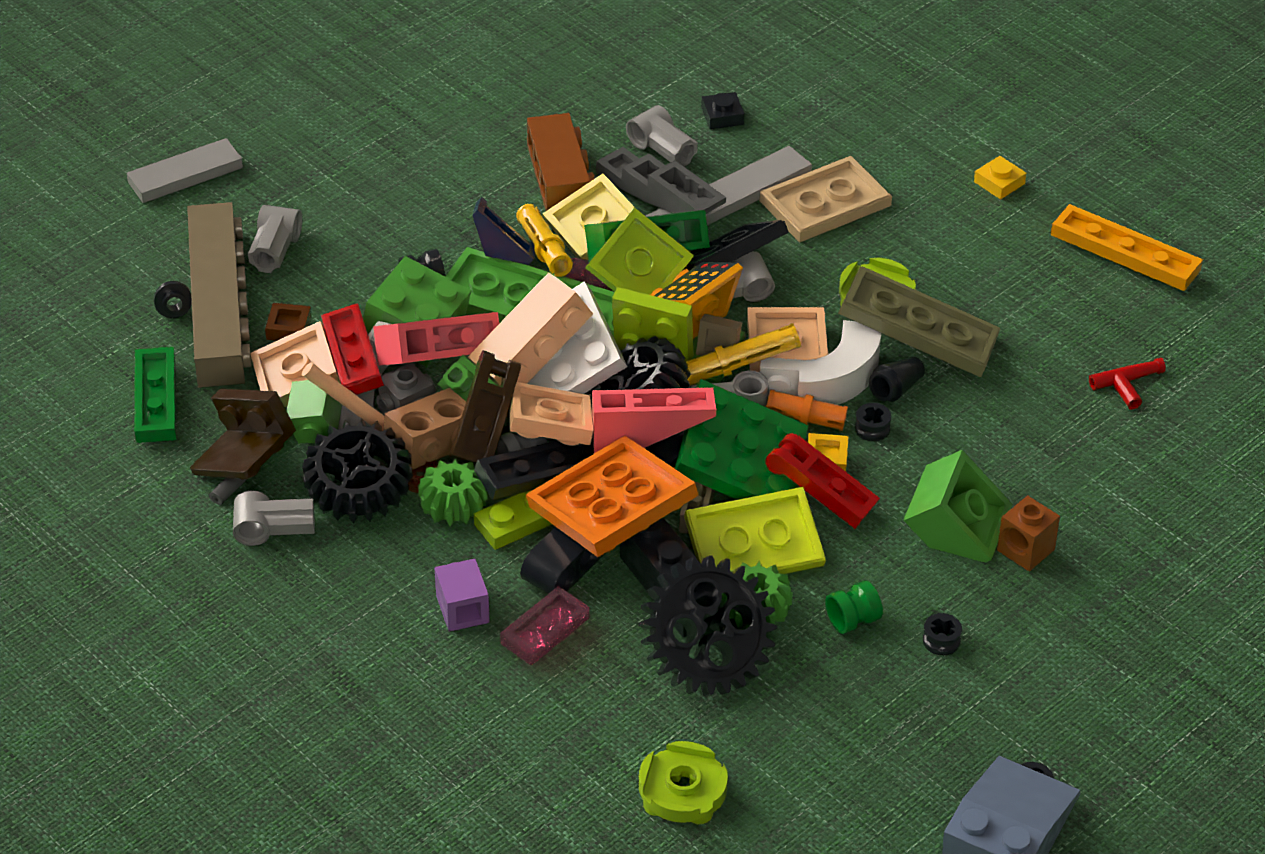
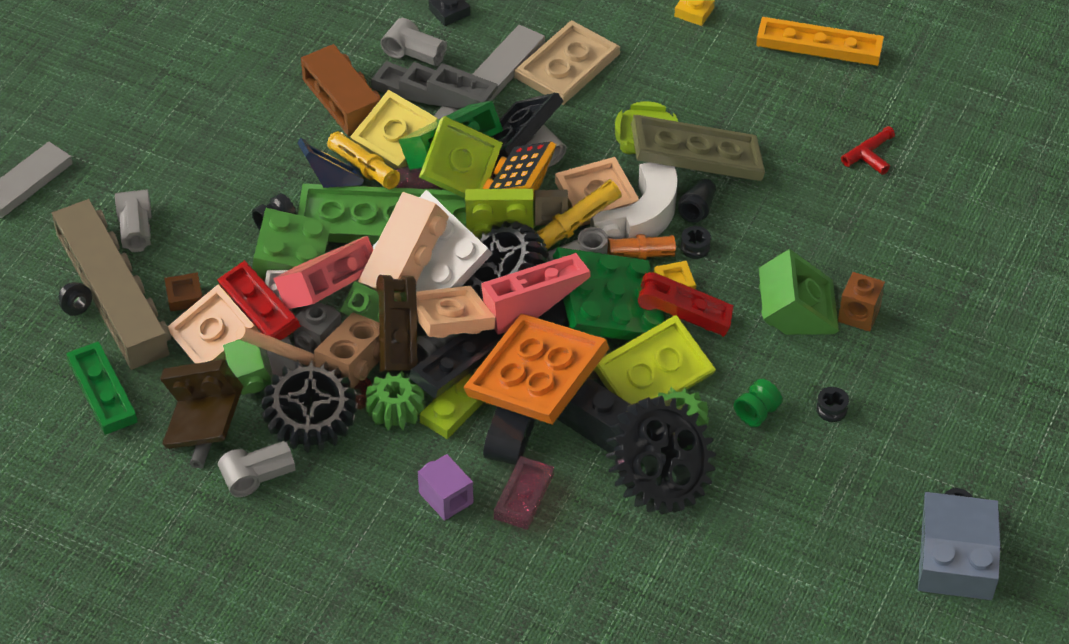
camera: 20 degrees left, 5 degrees up
(680, 803) = (695, 609): lime plate -> none

